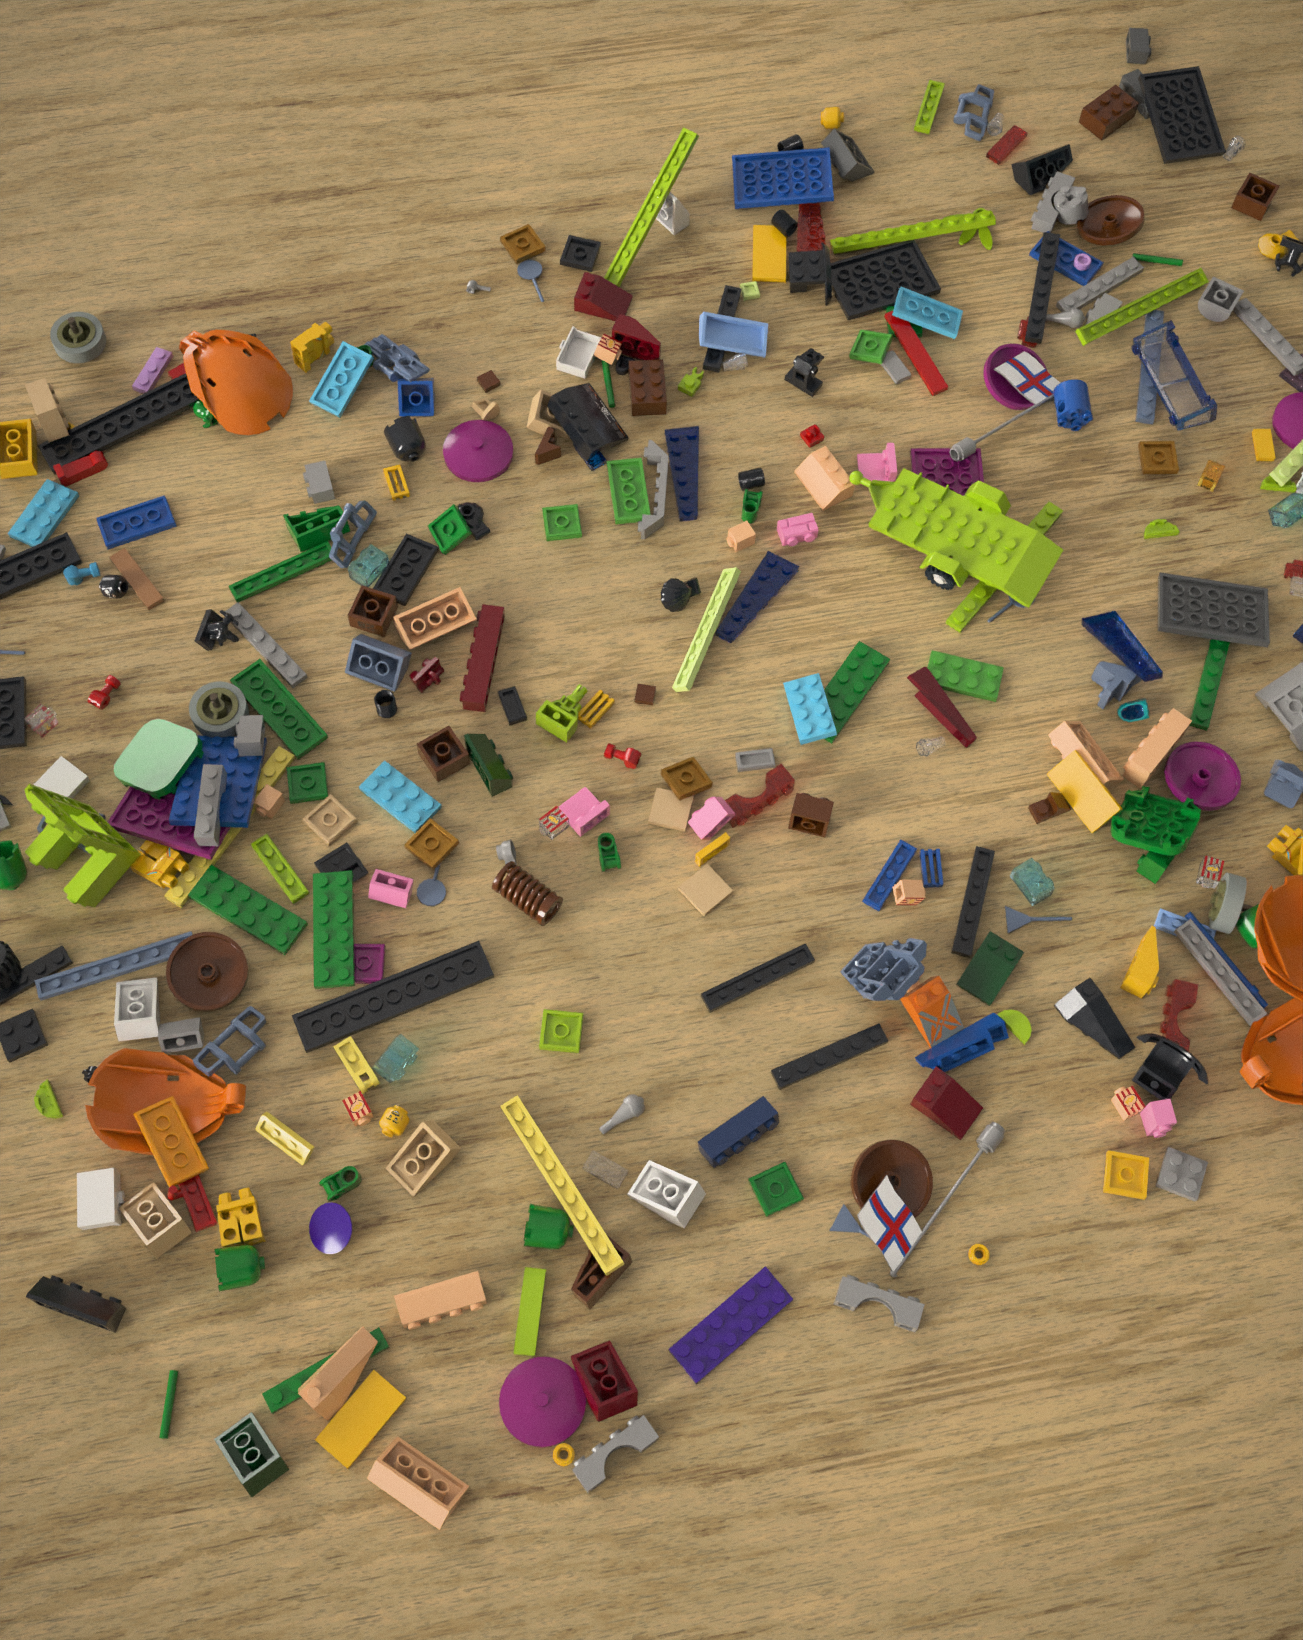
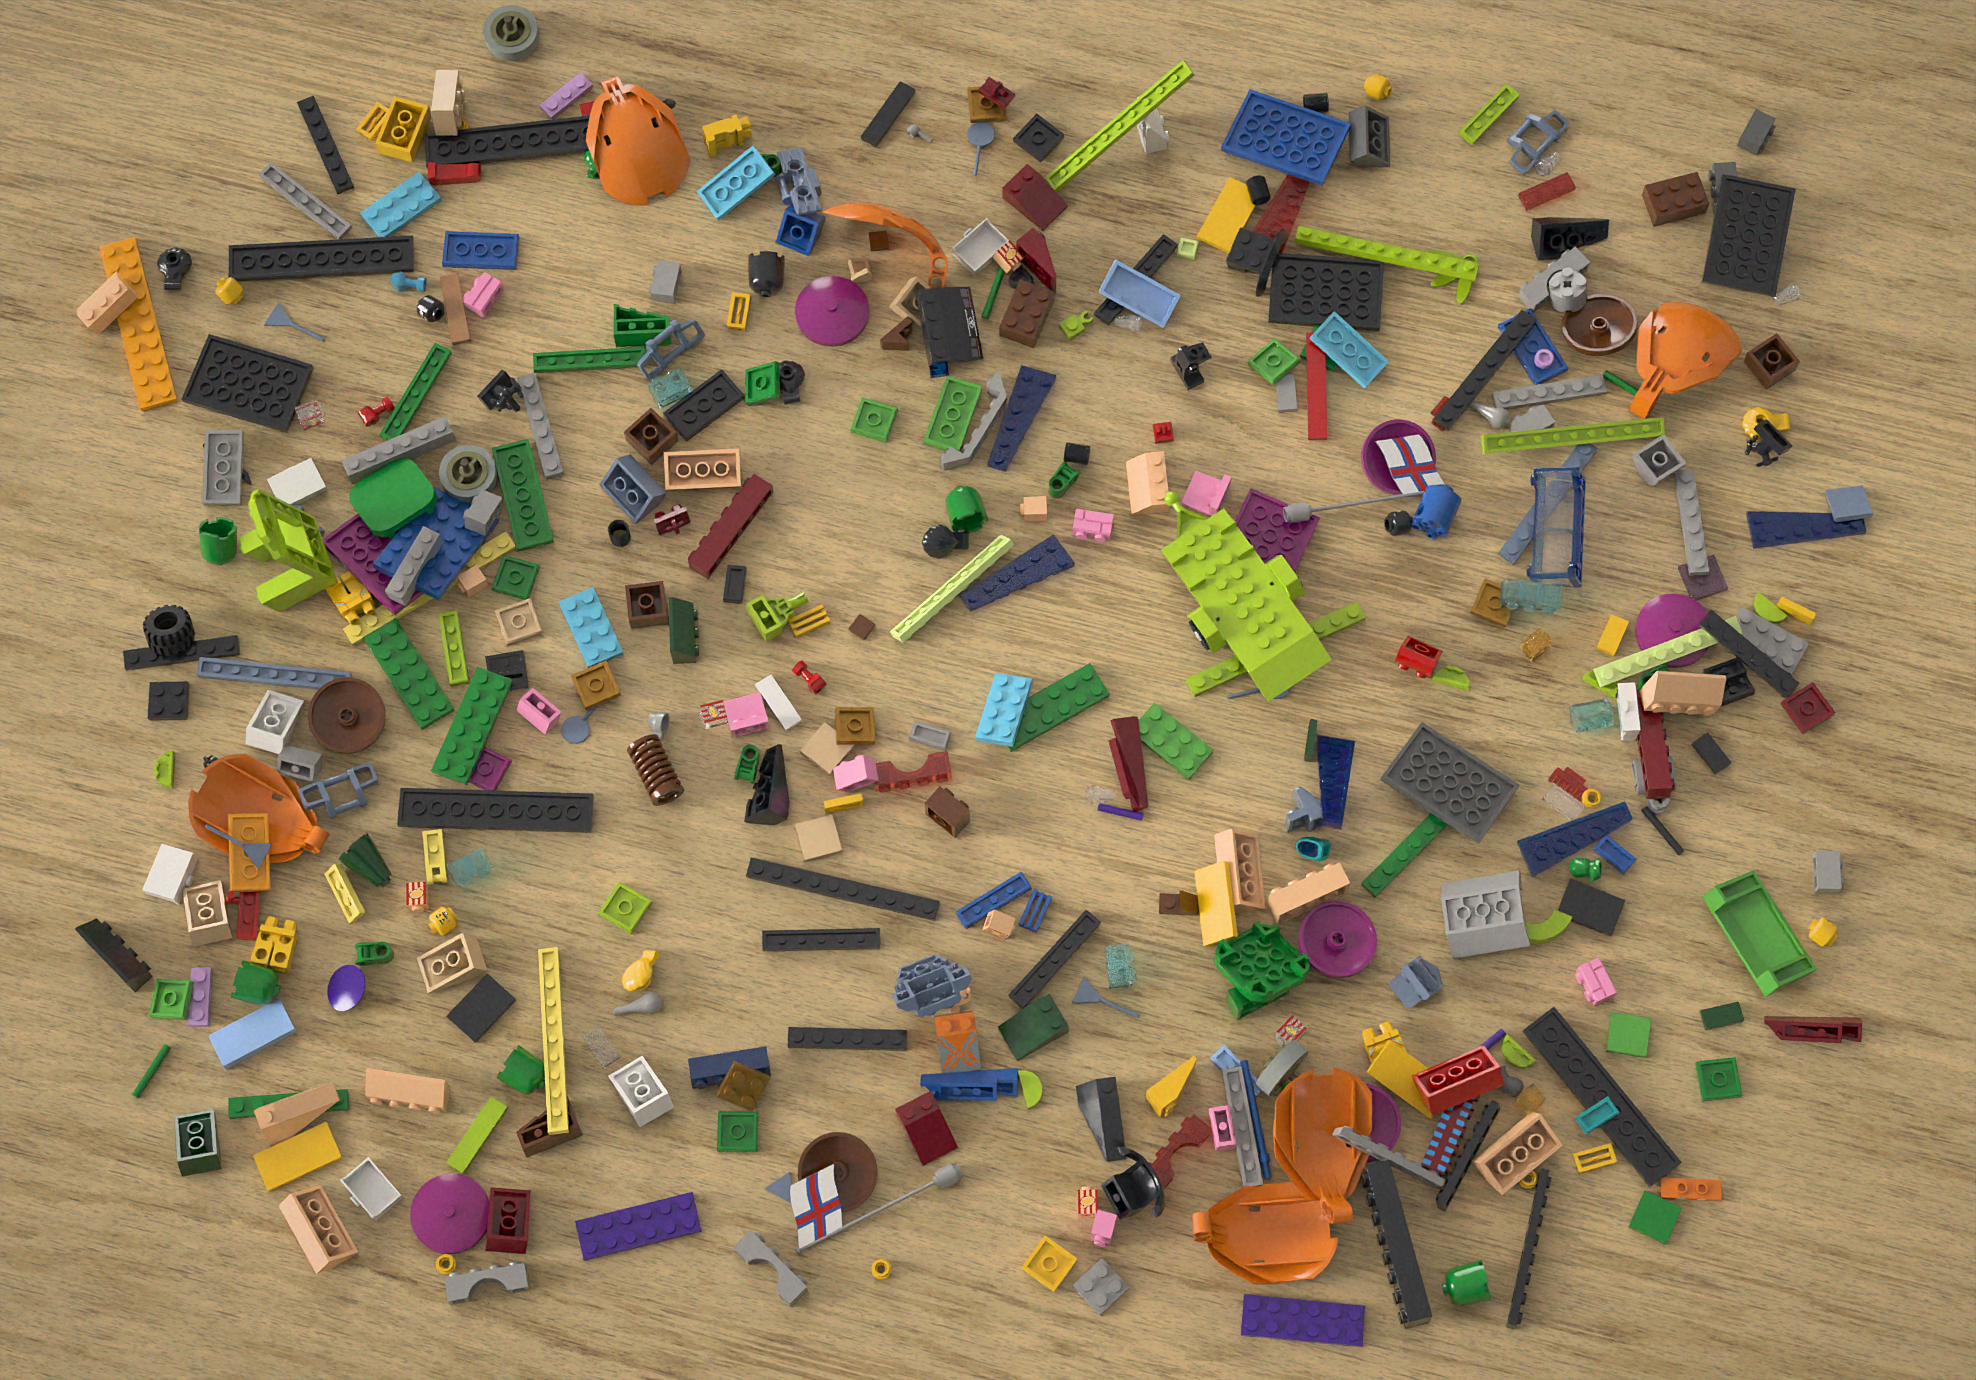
camera: 30 degrees right, 5 degrees up
(134, 663) = (416, 392): none -> green plate
(150, 707) = (404, 446): none -> light grey brick
(157, 556) = (483, 294): none -> bright pink brick
(157, 1322) = (171, 999): none -> bright green tile
(178, 1137) = (255, 851): none -> sand blue piece
(185, 1306) = (201, 997): none -> lavender plate
(256, 1317) = (252, 1034): none -> light blue slope
(293, 1098) = (367, 861): none -> dark green cone
(443, 282) = (888, 114): none -> black tile
(452, 1415) = (371, 1189): none -> white container
(472, 1187) = (481, 1008): none -> black tile
(502, 350) = (887, 216): none -> orange windscreen
(529, 228) = (996, 93): none -> dark red hips
(606, 789) = (778, 703): none -> white tile
(608, 1083) = (639, 973): none -> yellow animal
(642, 870) = (771, 794): none -> black wedge
(684, 558) = (965, 509): none -> green cylinder
(751, 925) = (843, 889): none -> black plate
(762, 1143) = (743, 1086): none -> pearl gold plate
(955, 752) = (1120, 812): none -> dark purple piece
(1045, 427) = (1398, 523): none -> black head
(1079, 625) = (1310, 740): none -> dark green tile
(1126, 523) = (1418, 656): none -> red brick
(1186, 438) = (1530, 596): none -> clear light blue brick
(1187, 217) = (1674, 358): none -> orange windscreen
(1209, 982) = (1222, 1128): none -> bright pink brick

